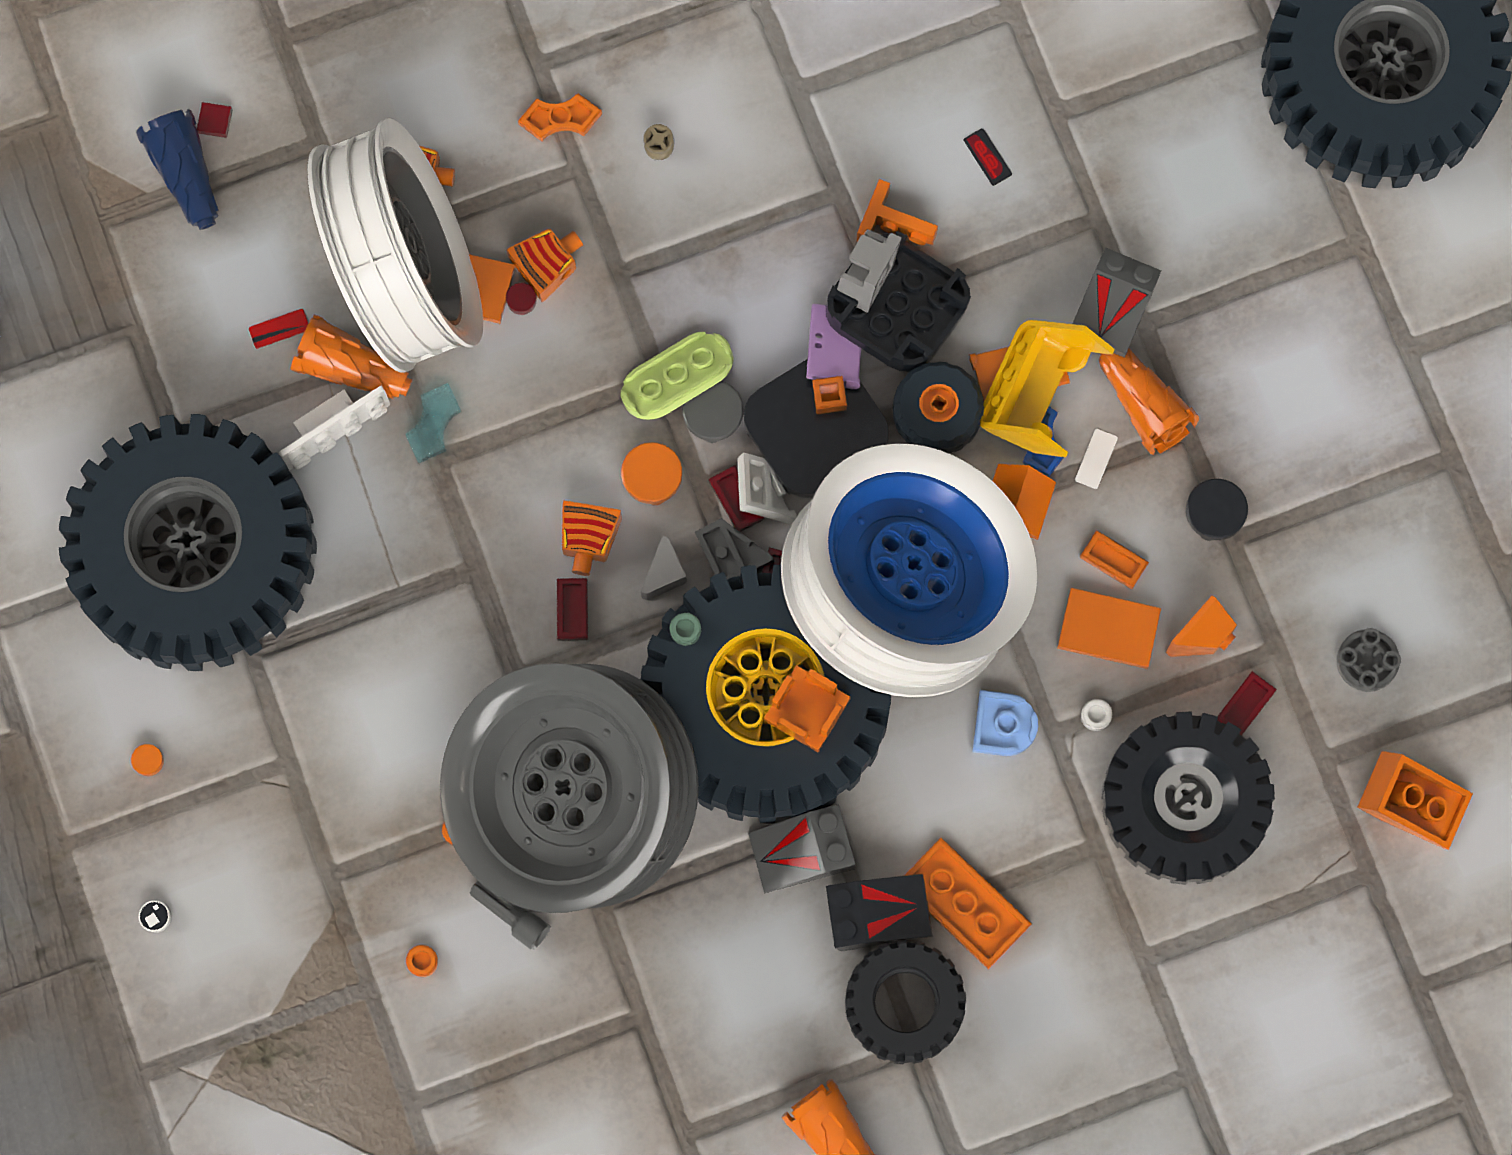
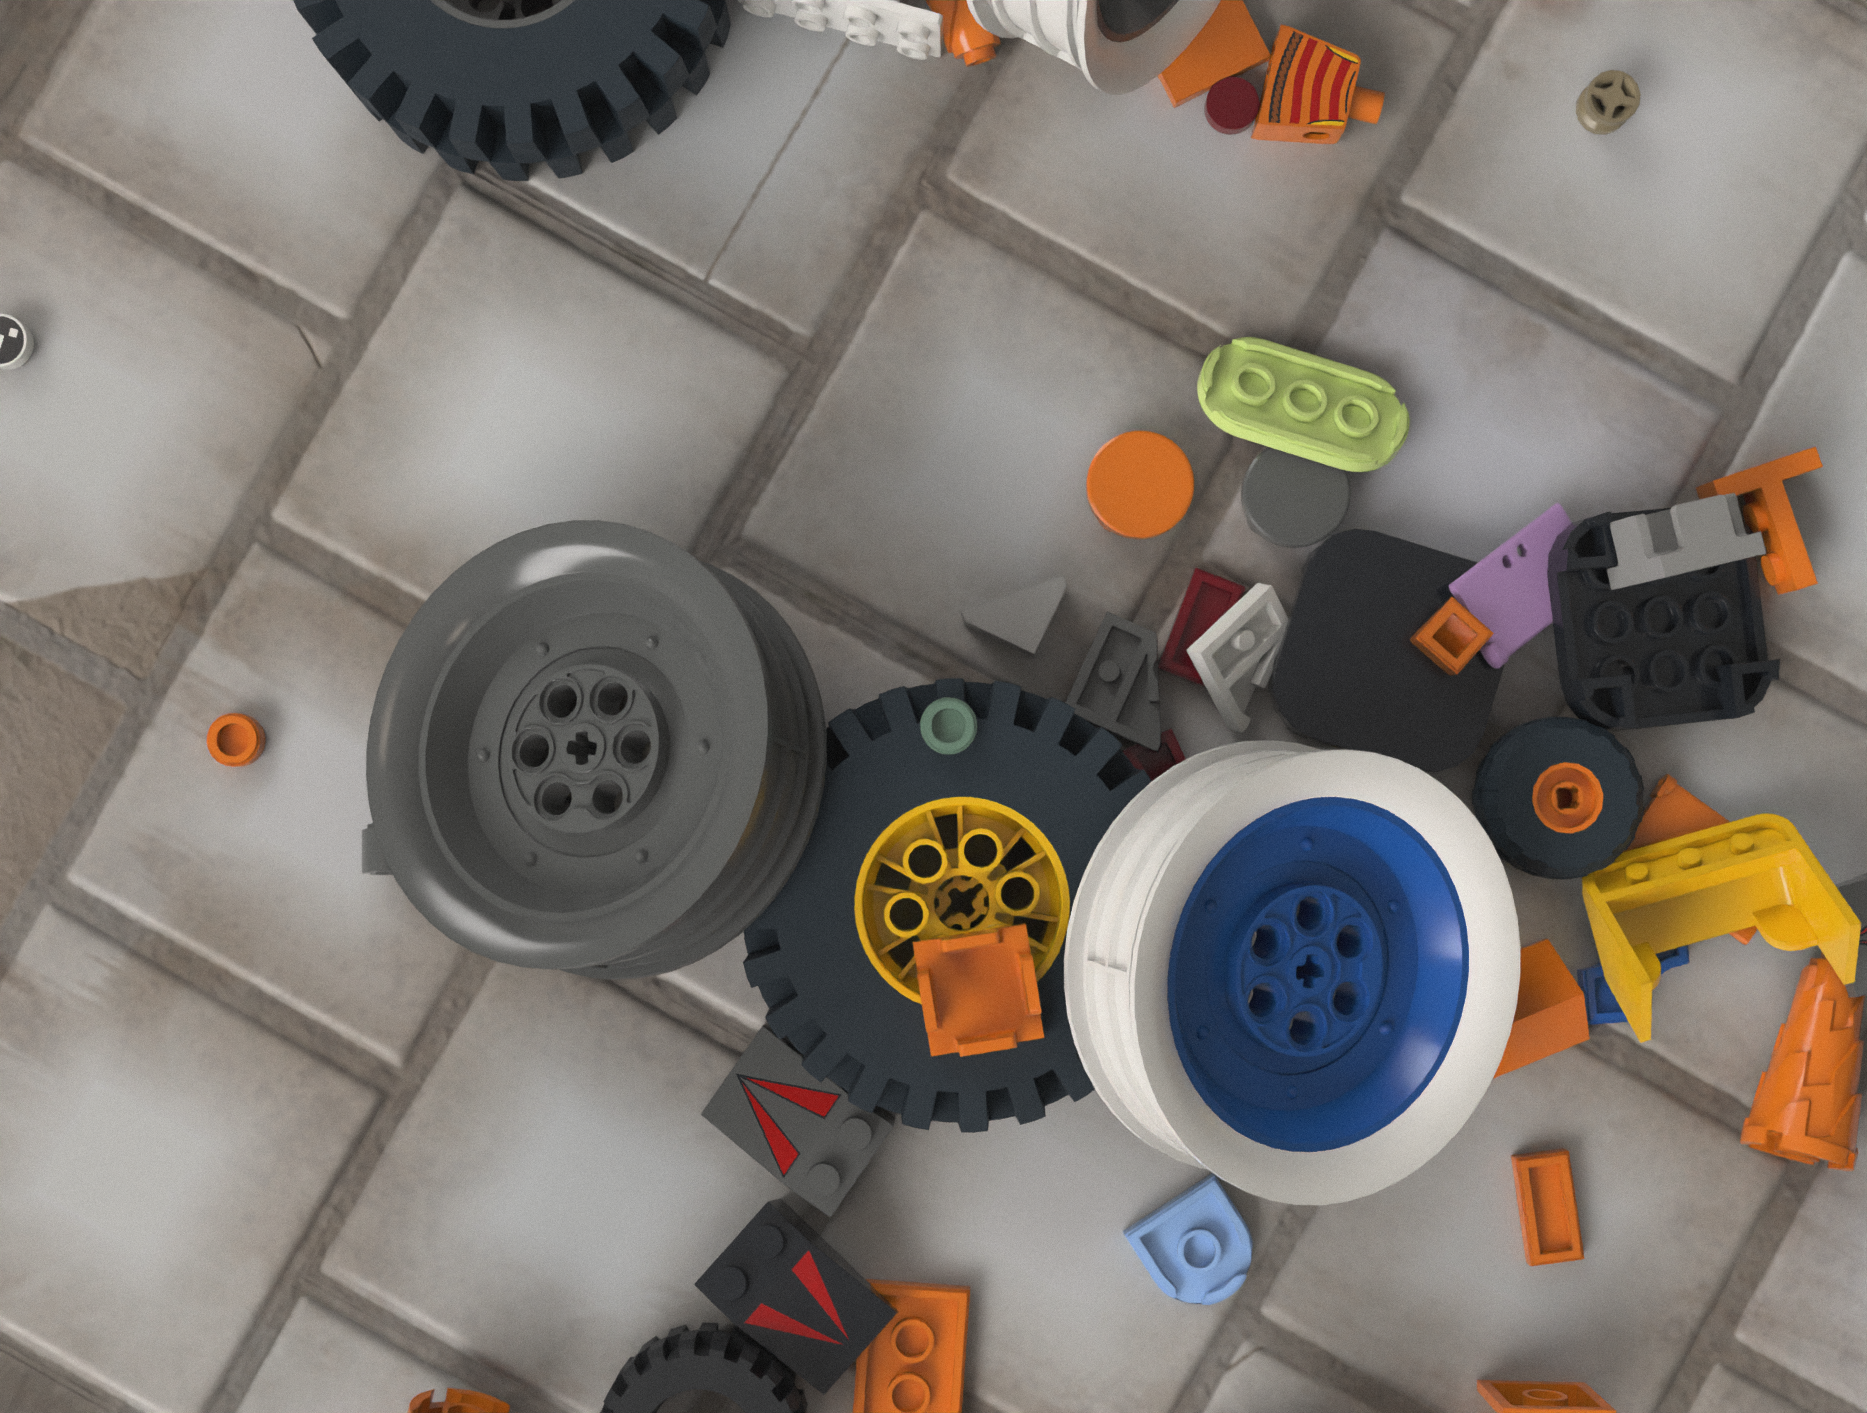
camera: 50 degrees right, 10 degrees up
(147, 760) = (198, 152): orange tile -> none
(428, 435) = (941, 142): clear light blue tile -> none
(572, 609) = (866, 536): dark red tile -> none
(588, 533) = (983, 471): orange torso -> none
(1096, 458) = (1667, 1065): white sticker -> none
(1096, 715) = (1312, 1359): white tile -> none
(1109, 628) = (1447, 1279): orange tile -> none
(1216, 509) = (1736, 1292): black tile -> none

